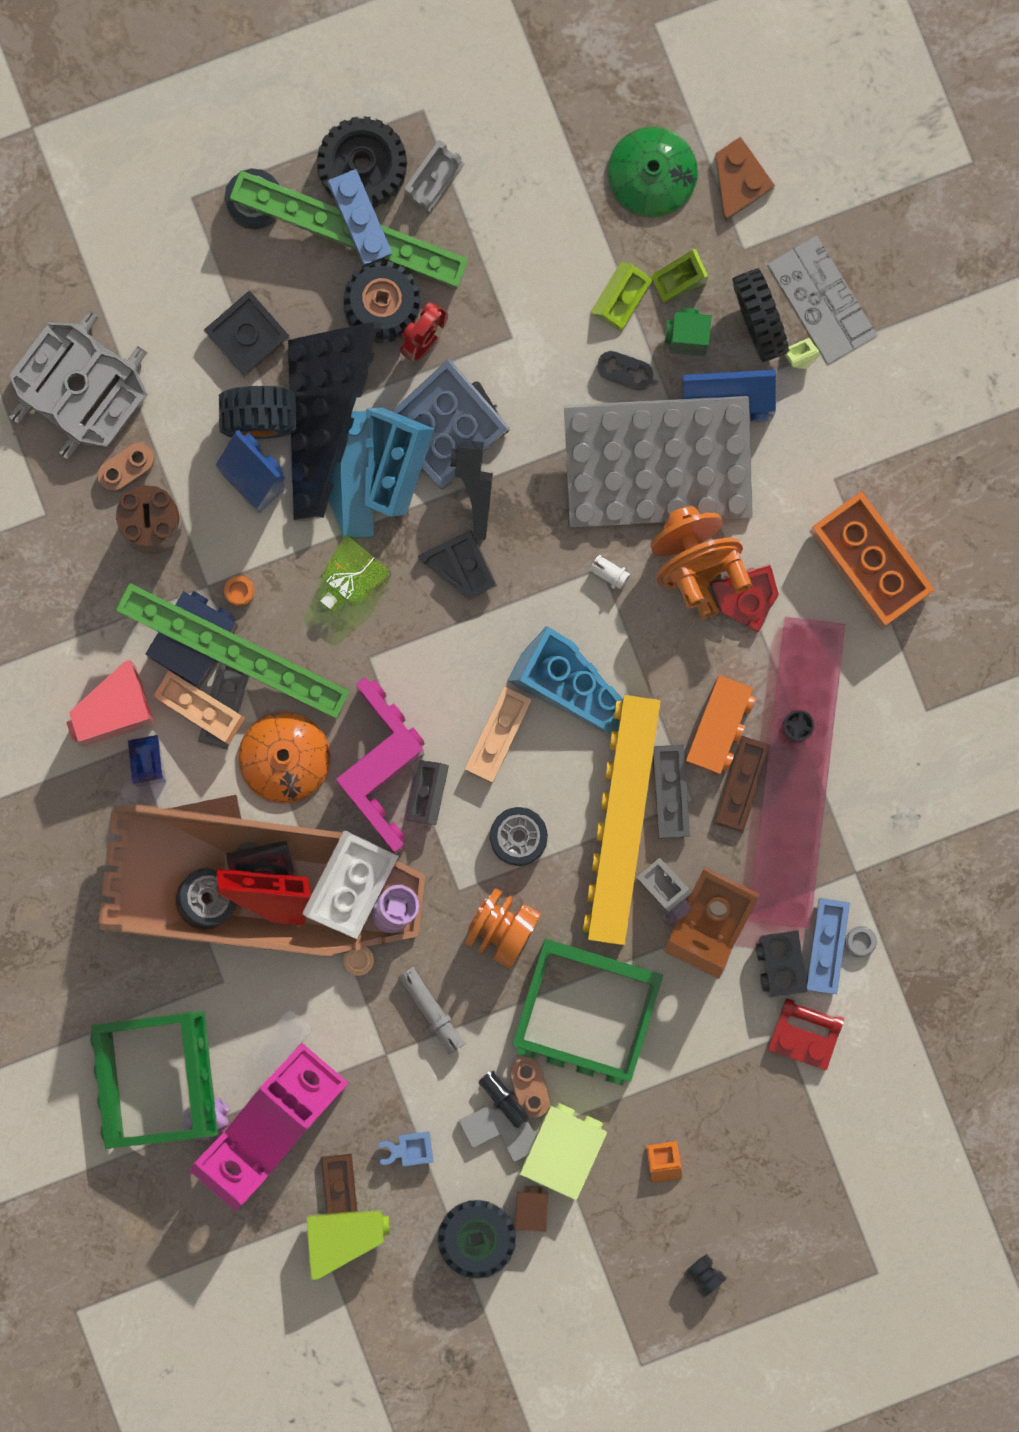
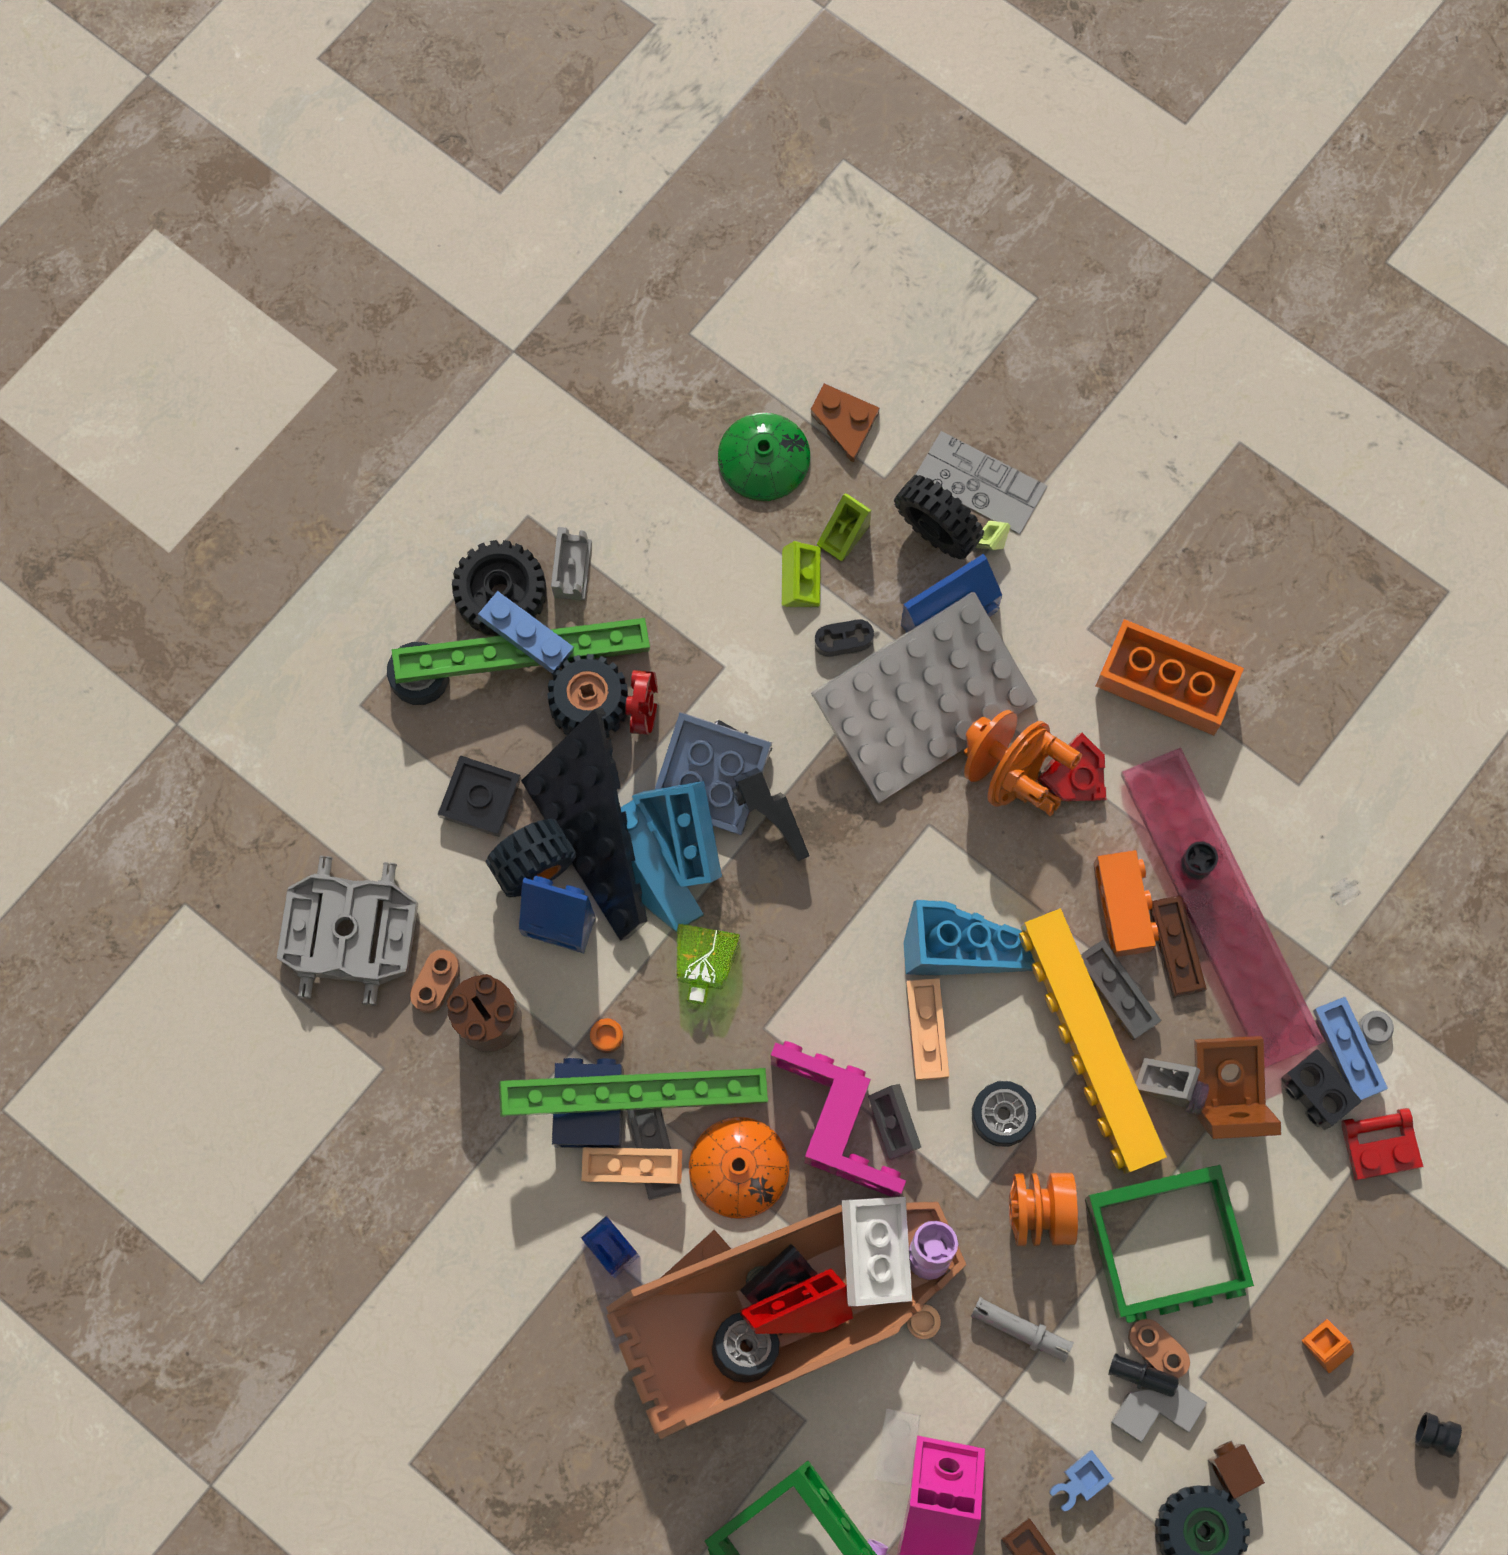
camera: 25 degrees left, 10 degrees down
(111, 708) = (548, 1215): coral slope -> none
(461, 565) = (799, 893): black wing -> none
(563, 1151) = (1230, 1392): yellowish green brick -> none
(612, 573) = (939, 822): white pin -> none
(688, 332) = (883, 570): green brick -> none

